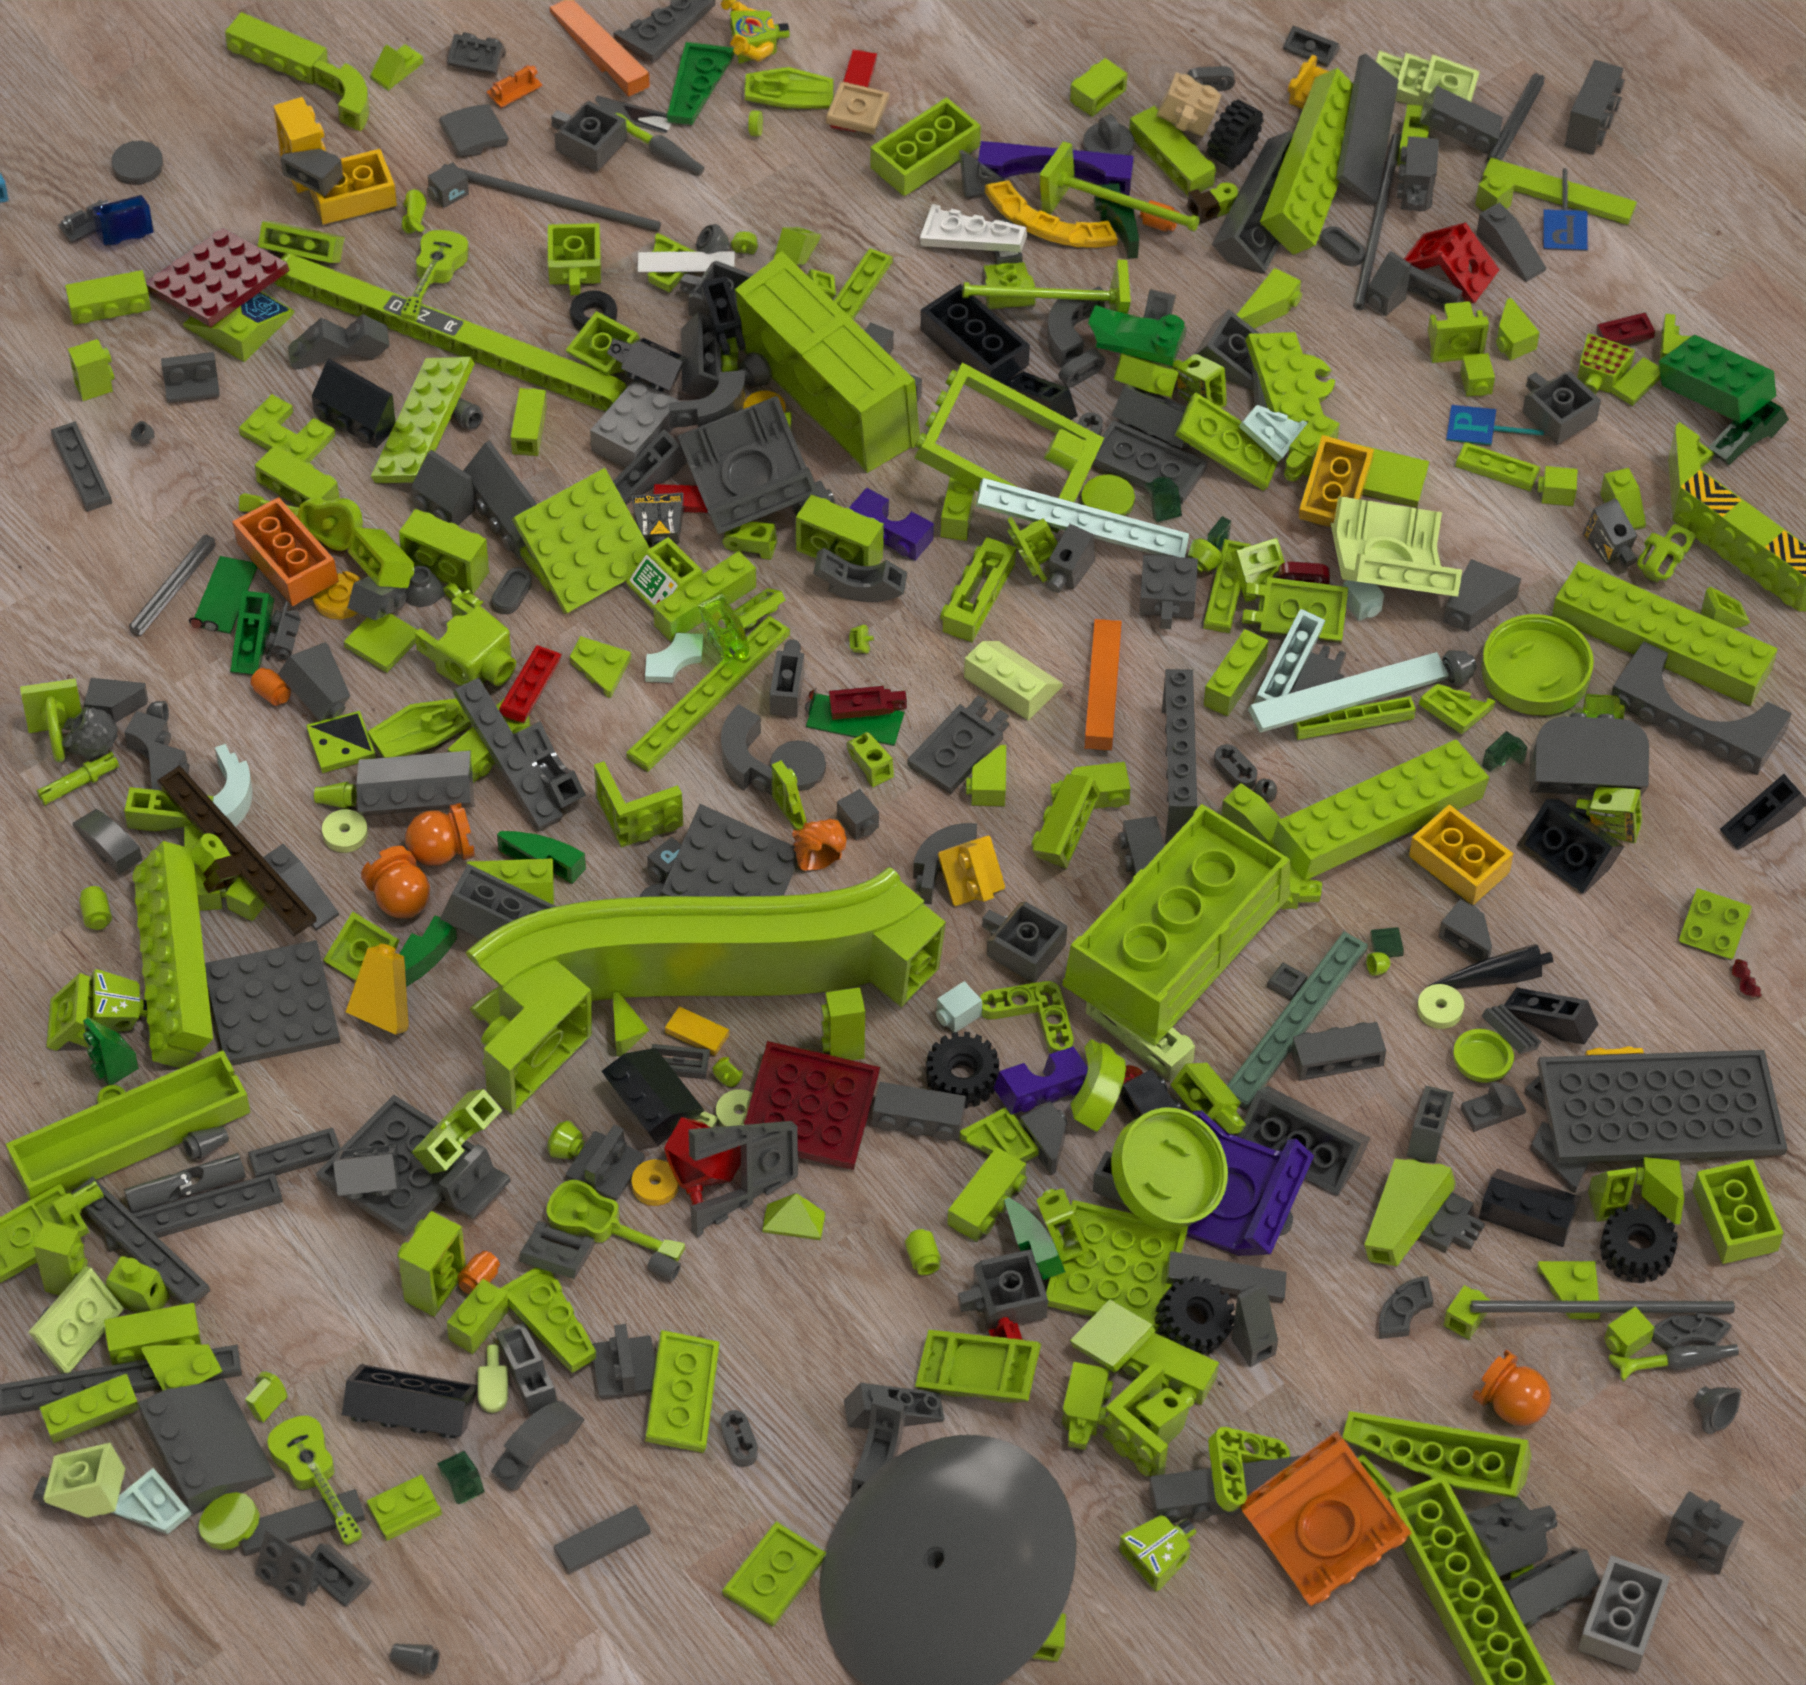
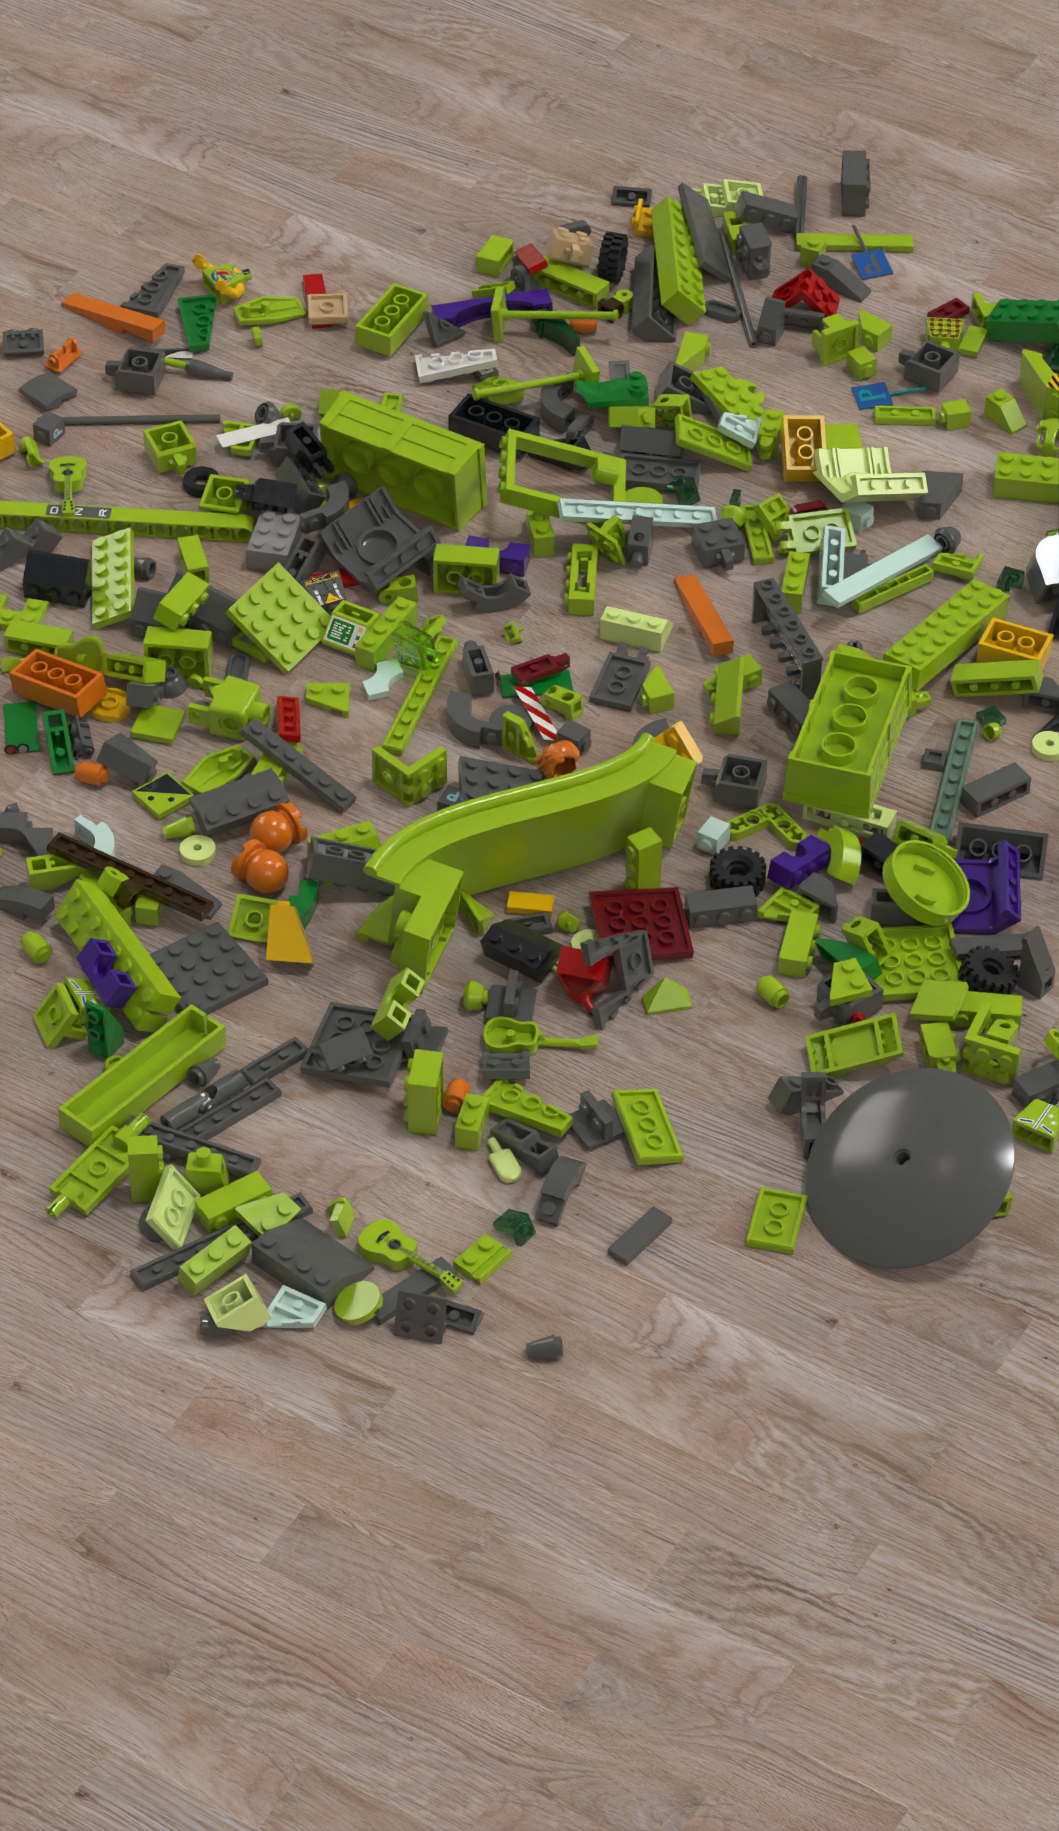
camera: 20 degrees left, 10 degrees down
(140, 1000) = (111, 985): none -> dark purple arch
(409, 1400) = (451, 1189): black slope -> none
(466, 489) = (182, 601): none -> lime brick
(557, 778) = (347, 774): dark grey arch -> none
(567, 860) = (340, 819): green slope -> none
(654, 1194) = (556, 1013): yellow piece -> none
(664, 1266) = (589, 1054): dark grey hinge -> none
(745, 1436) = (702, 1145): dark grey beam -> none
(833, 762) = (537, 712): none -> sticker
(1006, 1278) = (848, 983): none -> lime wing
(1046, 226) = (505, 348): yellow tile -> none
(1079, 138) = (488, 290): none -> lime piece
(1134, 107) = (531, 258): none -> red tile
(1232, 769) = (824, 639): dark grey beam -> none
(1414, 893) = (996, 678): none -> lime brick
(1537, 664) = (1001, 523): lime brick -> none
(1611, 534) = (1009, 432): dark grey torso -> none

